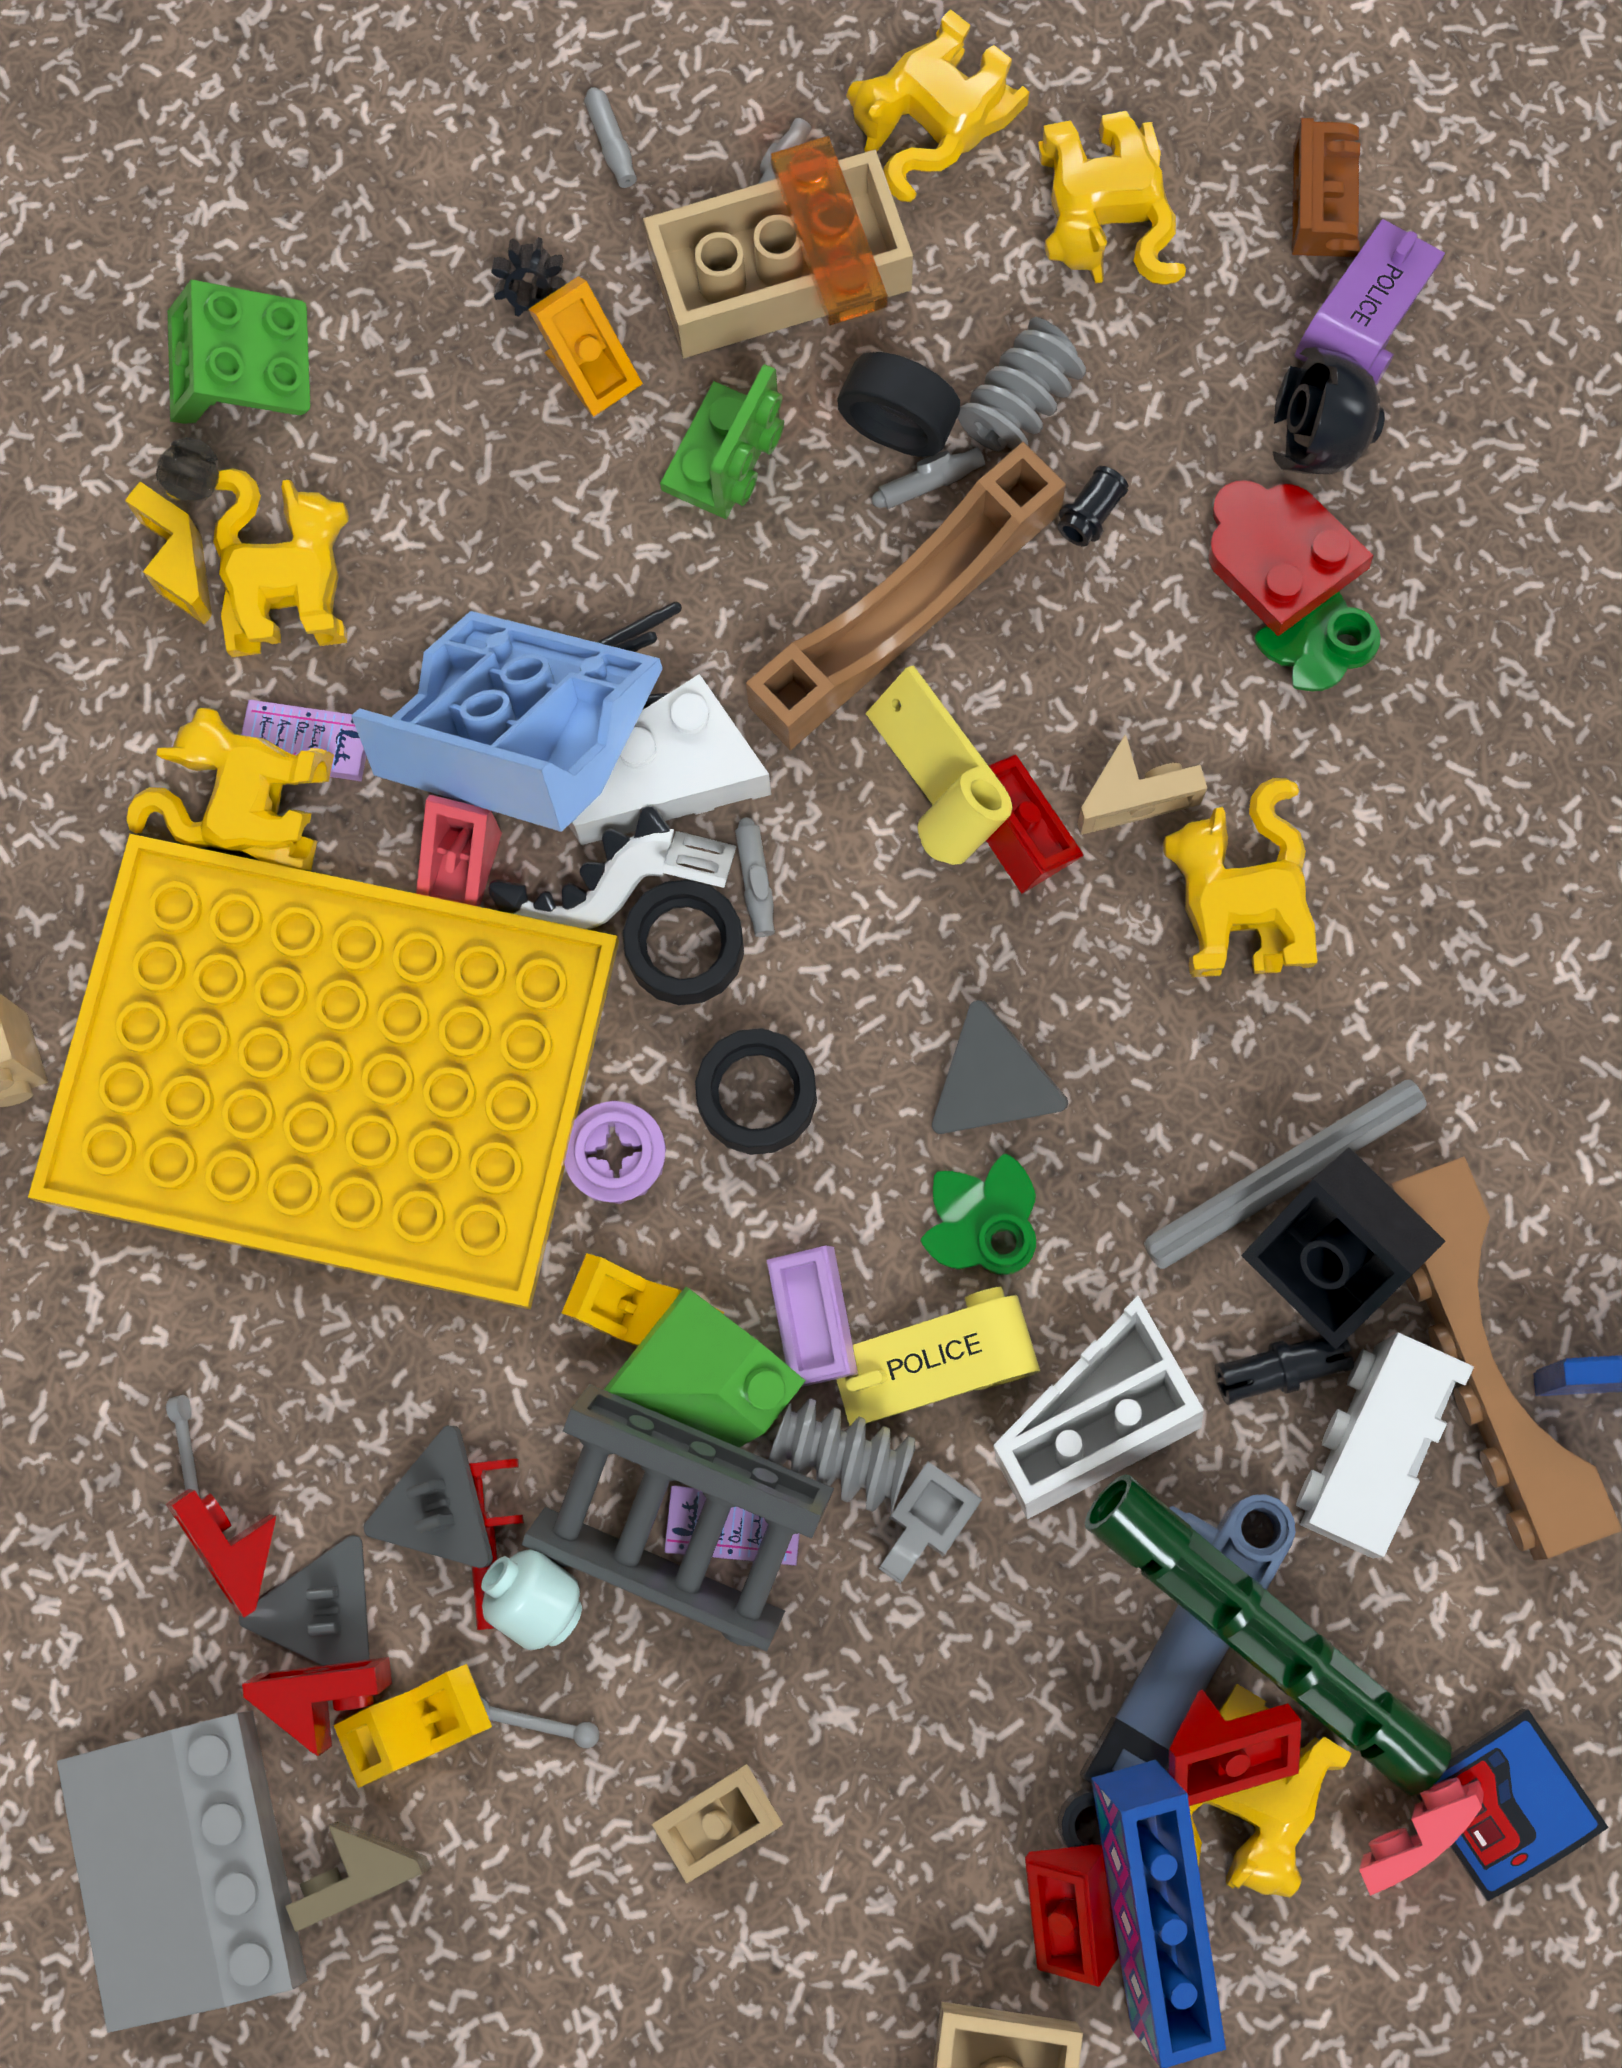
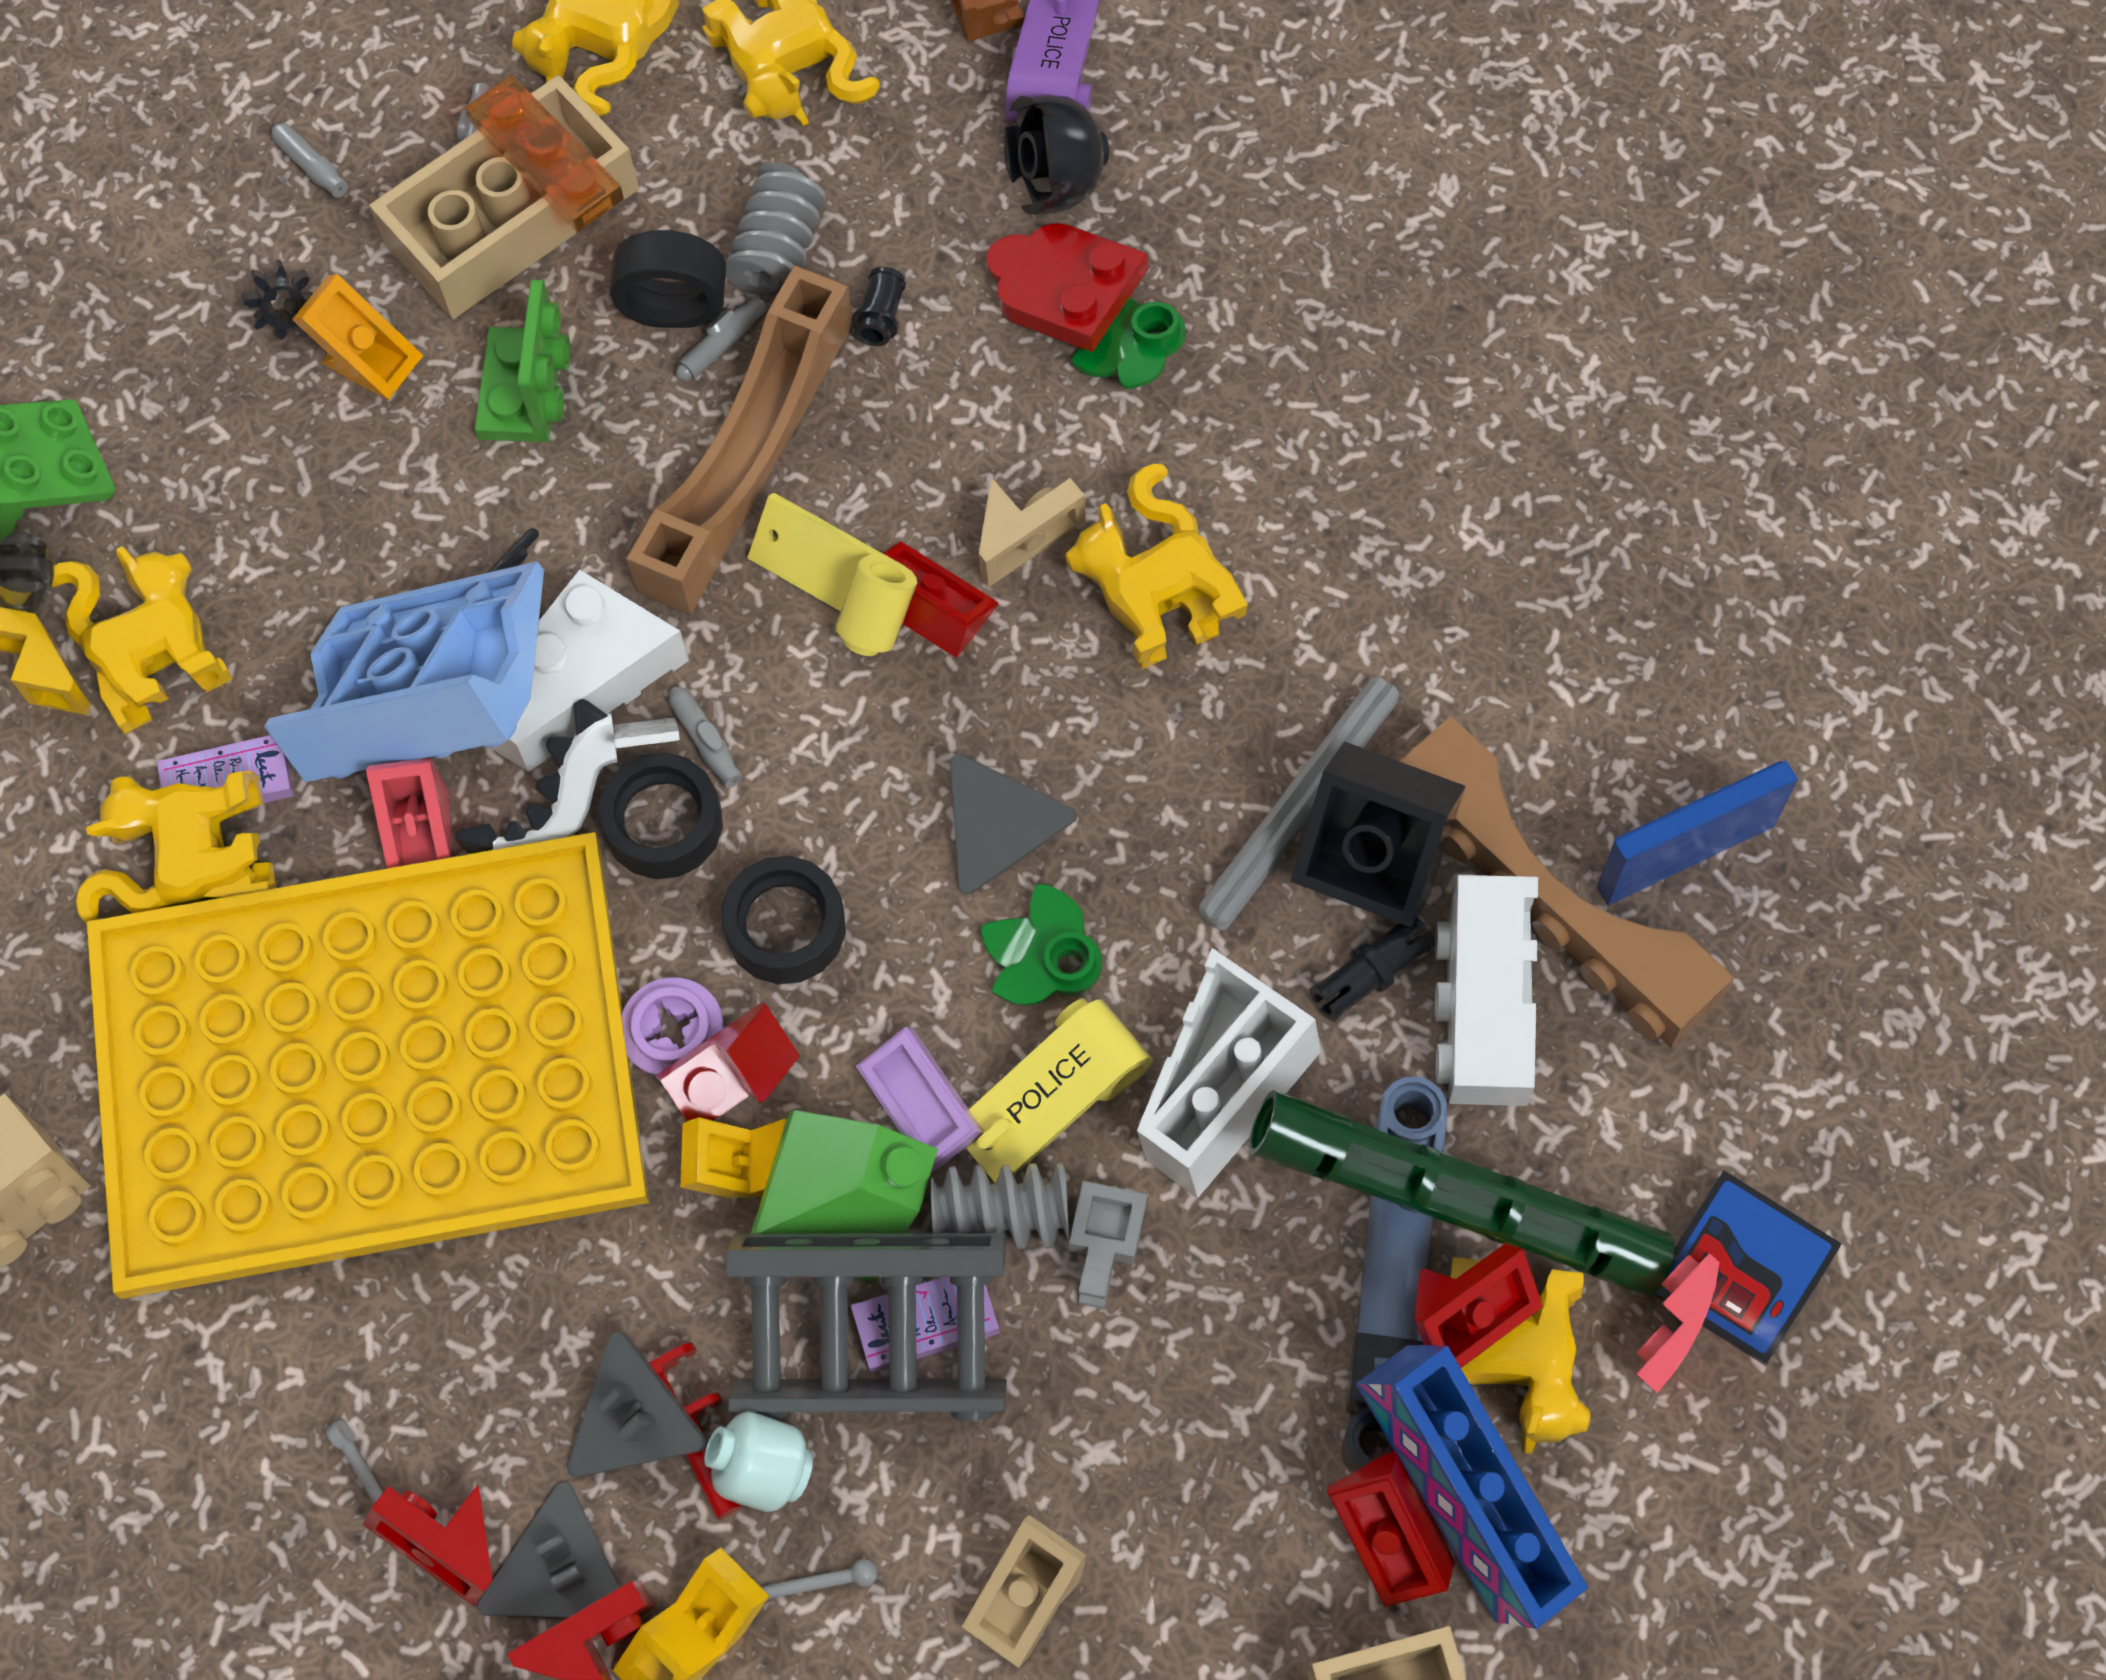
camera: 25 degrees left, 10 degrees down
(652, 1213) = (730, 1066): none -> red slope

